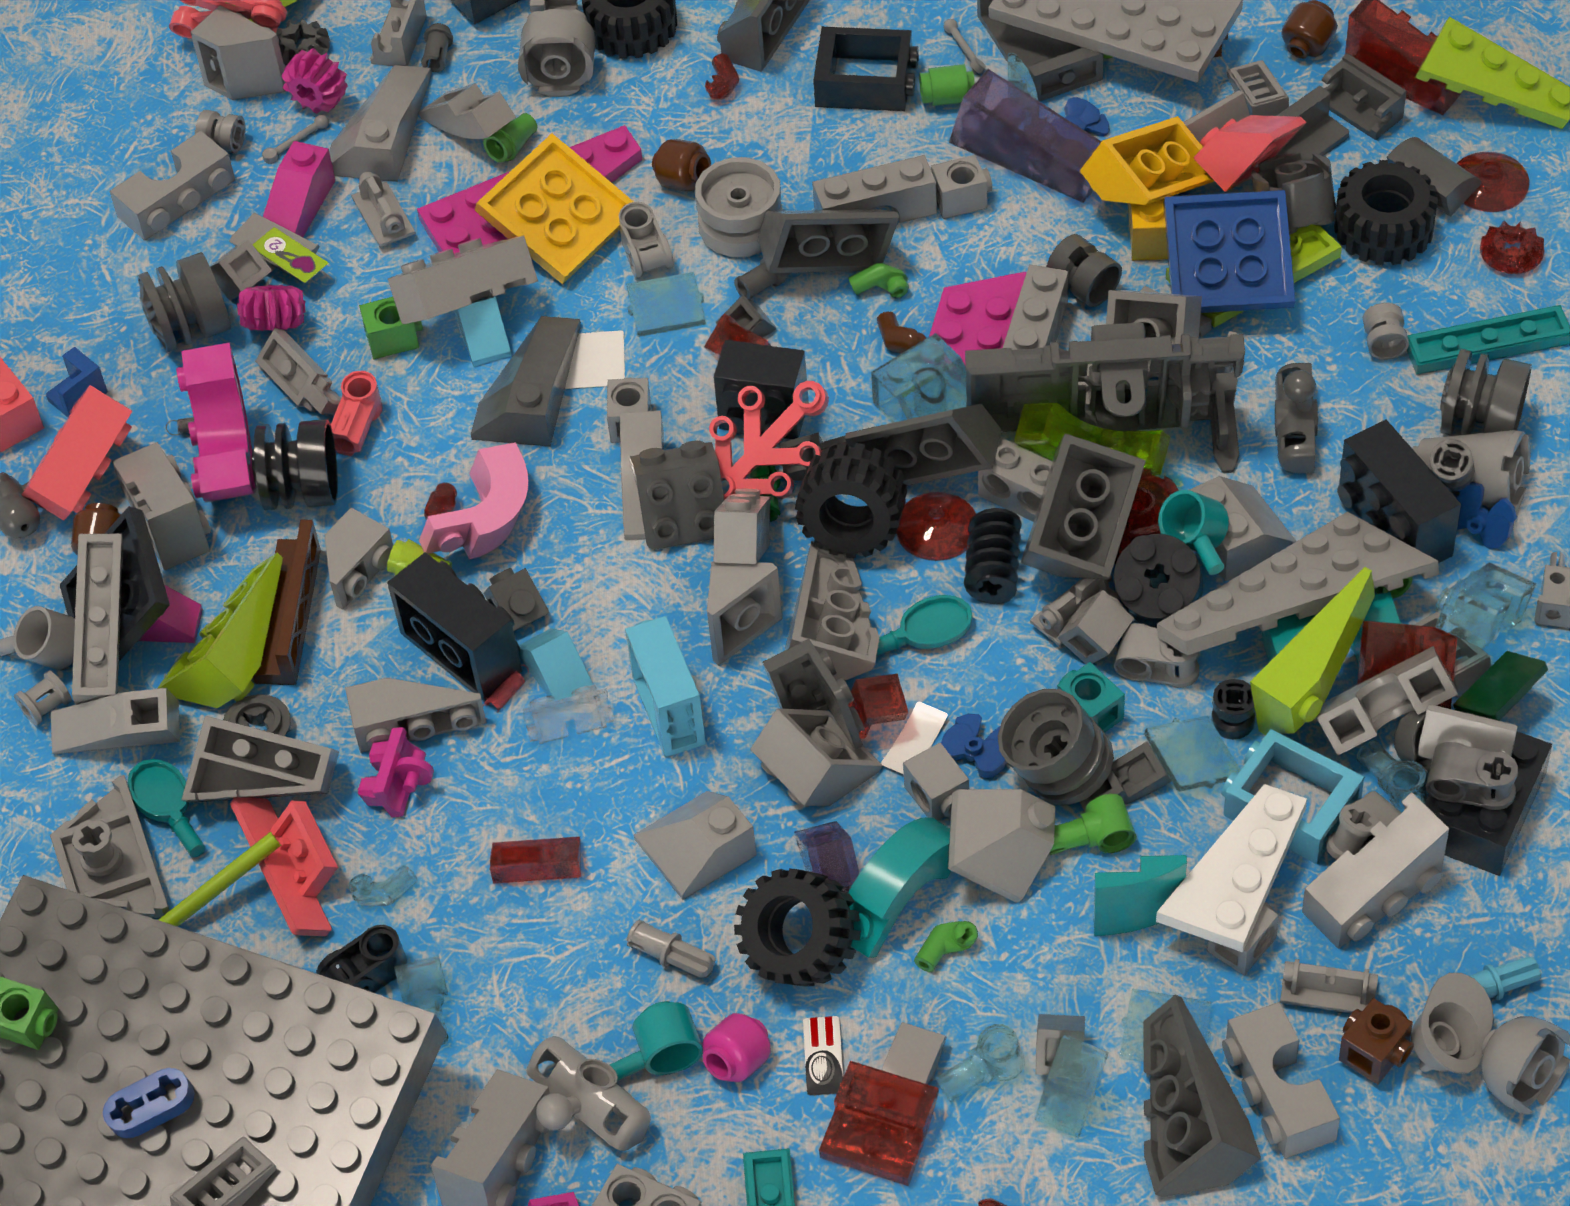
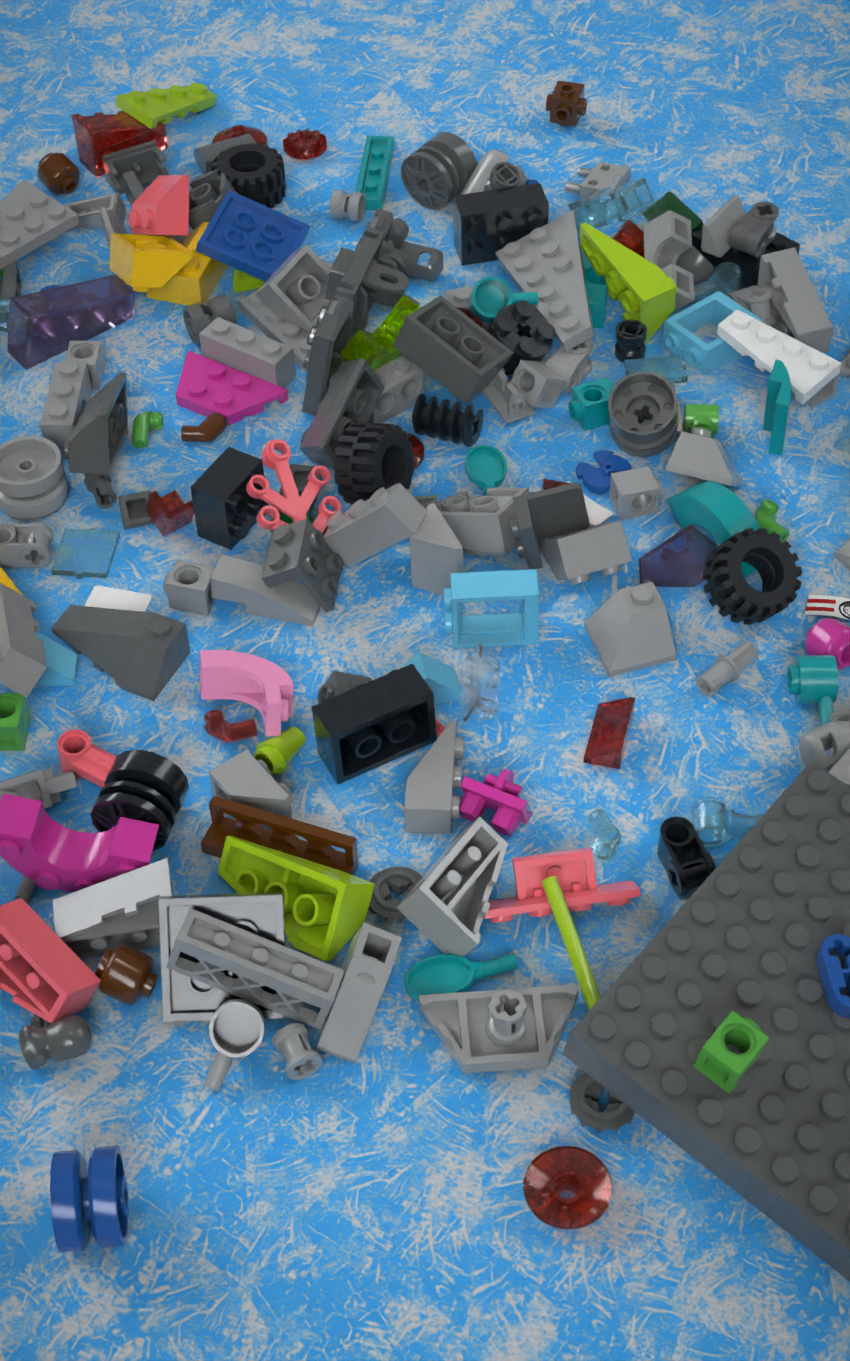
camera: 75 degrees left, 5 degrees down
(920, 381) = (270, 416): clear light blue slope -> none

